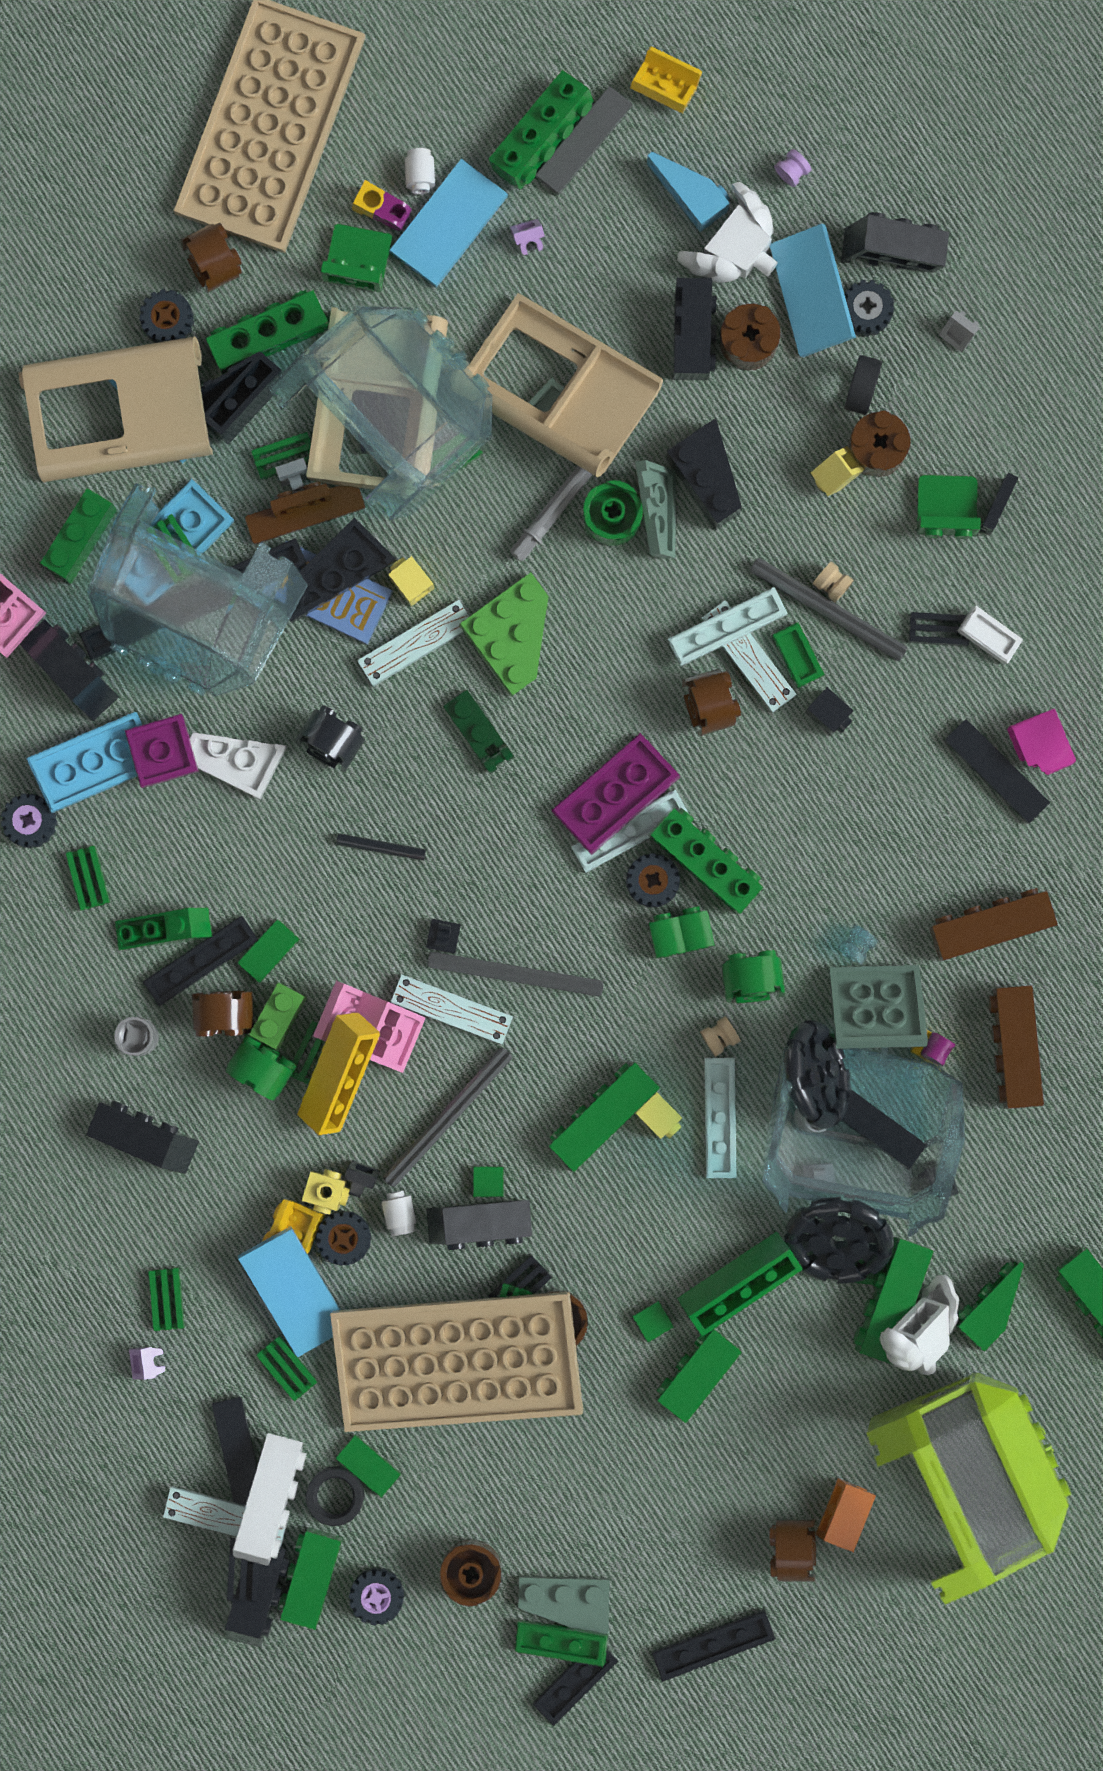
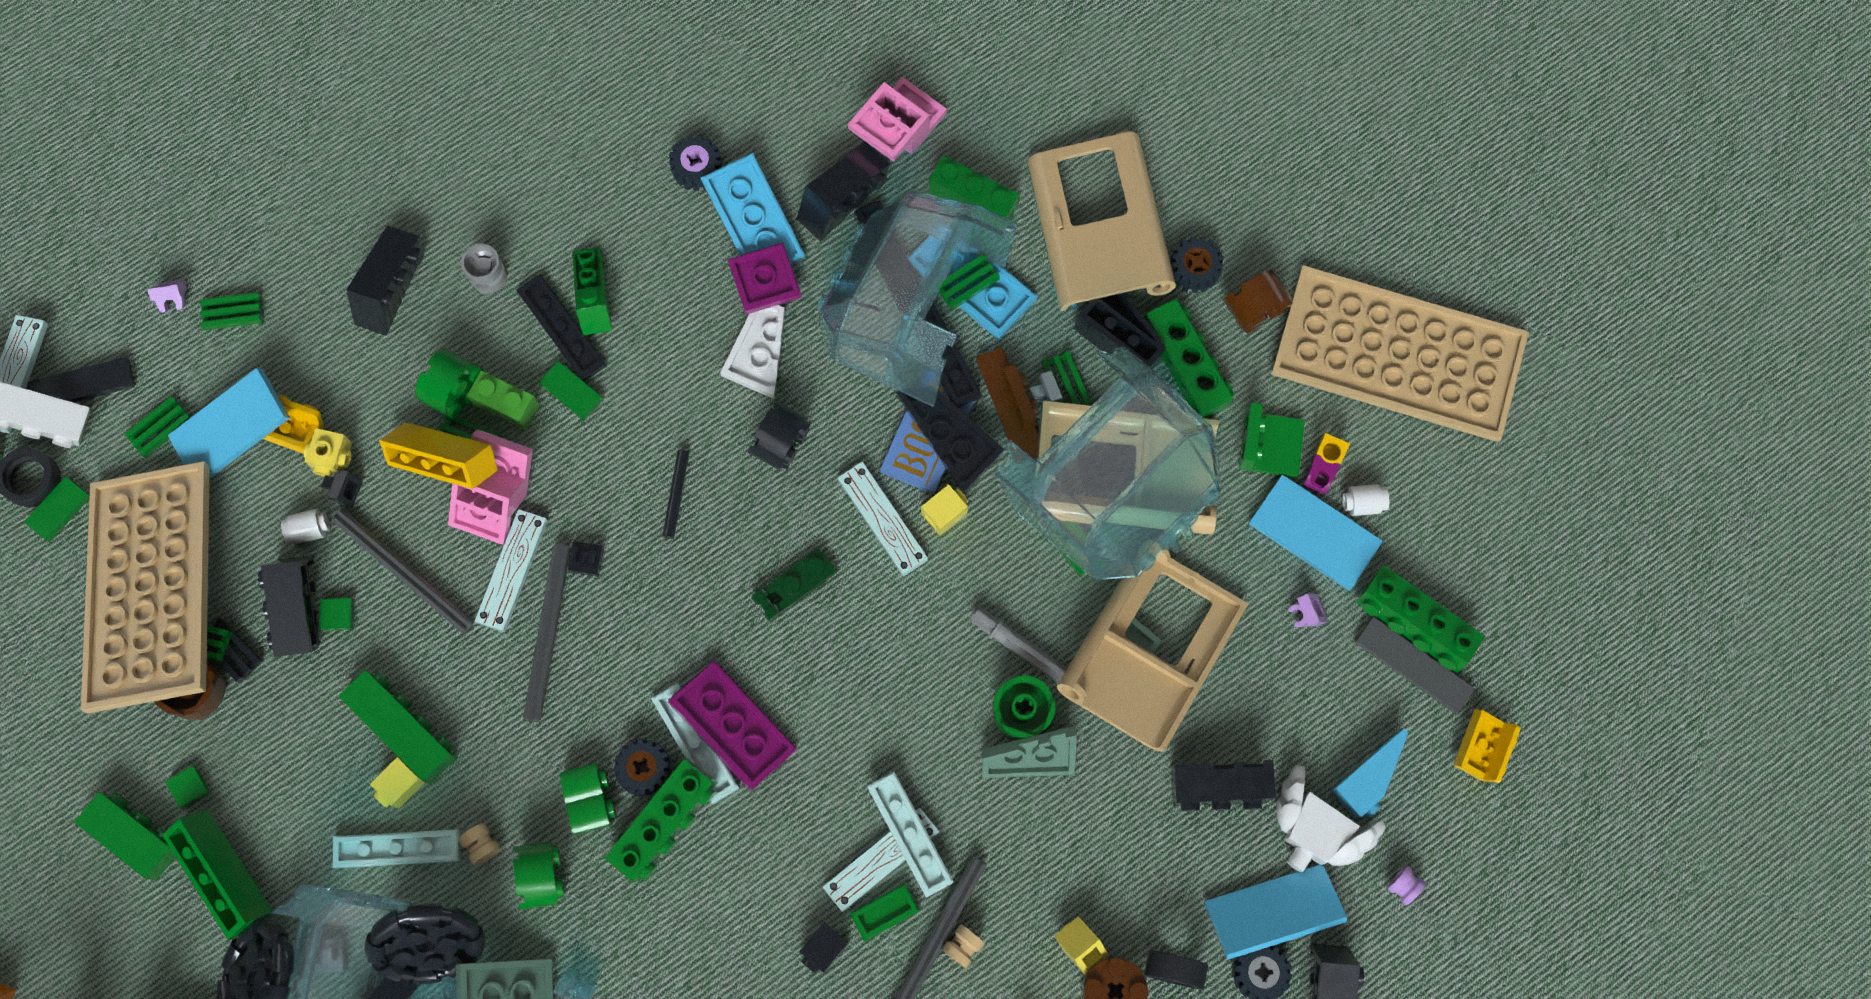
camera: 80 degrees right, 10 degrees down
(77, 882) = (639, 210): green tile -> none
(222, 1011) = (505, 345): reddish brown brick -> none
(335, 1244) = (275, 466): black wheel -> none
(511, 632) = (896, 611): bright green plate -> none
(707, 474) = (1072, 805): black wedge -> none
(710, 701) = (827, 818): reddish brown brick -> none
(761, 324) = (1228, 829): reddish brown brick -> none

